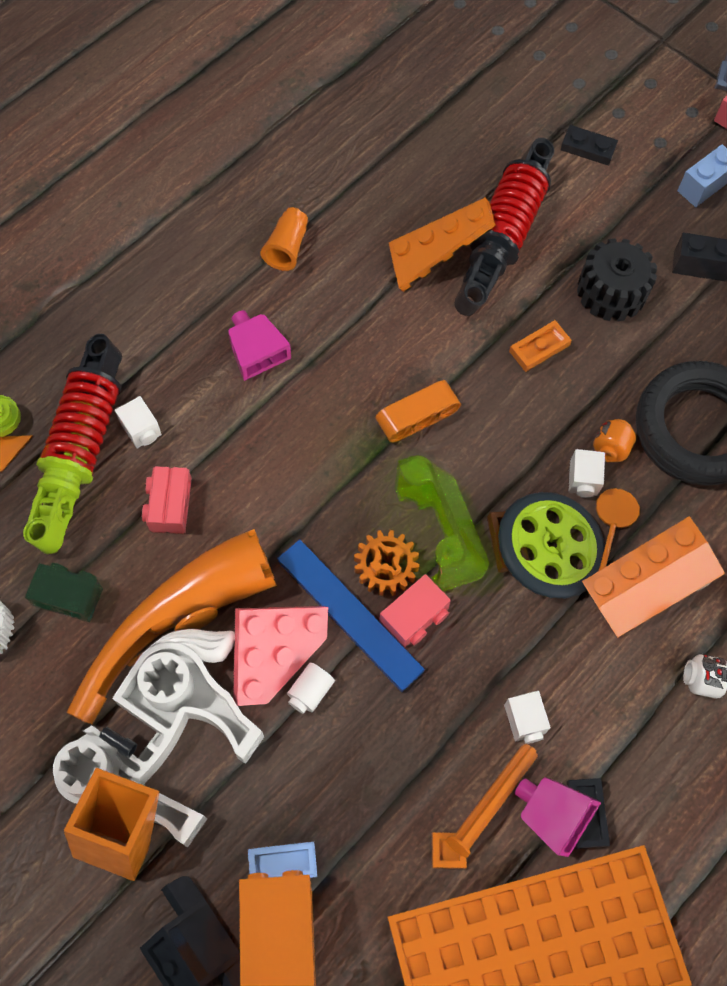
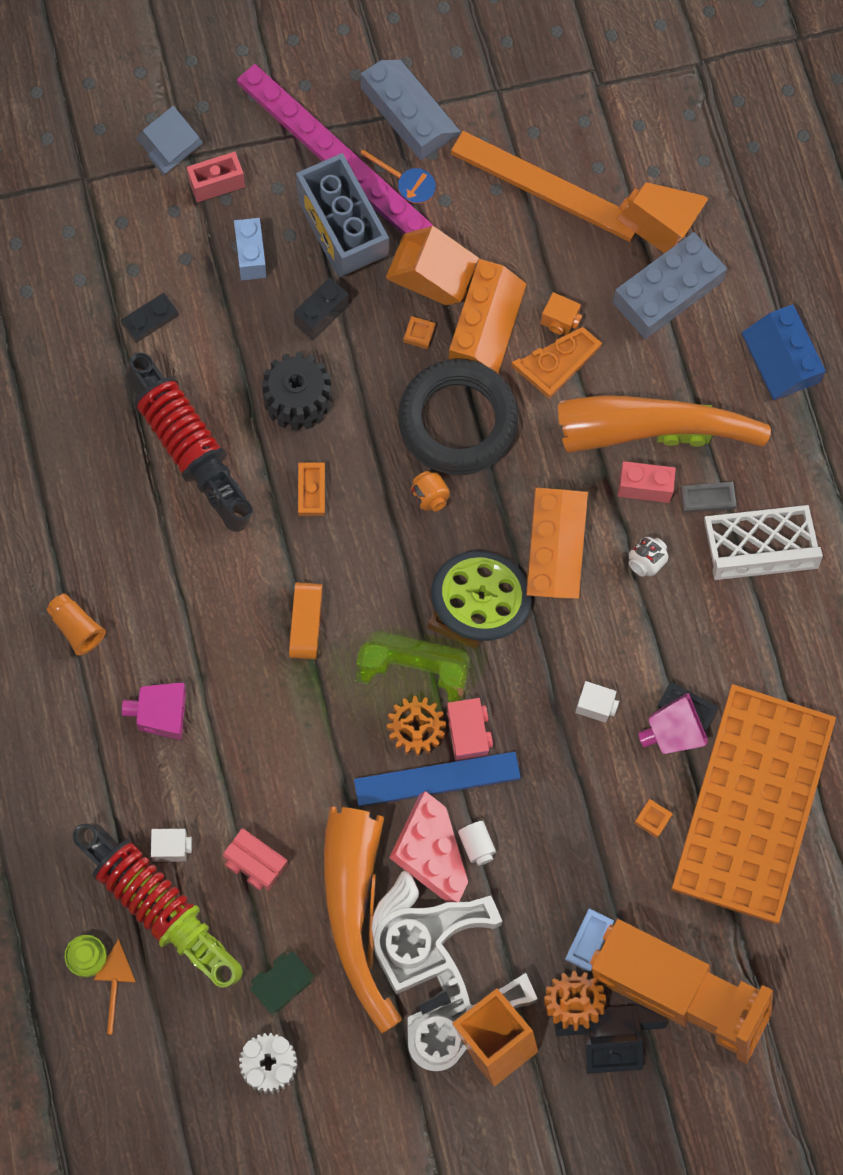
camera: 60 degrees left, 5 degrees up
(191, 888) = (575, 1000): none -> orange gear
(438, 240) = (166, 513): orange wing -> none
(492, 800) = (639, 764): orange axle -> none
(586, 473) = (442, 530): white brick -> none
(617, 510) = (483, 528): orange piece -> none

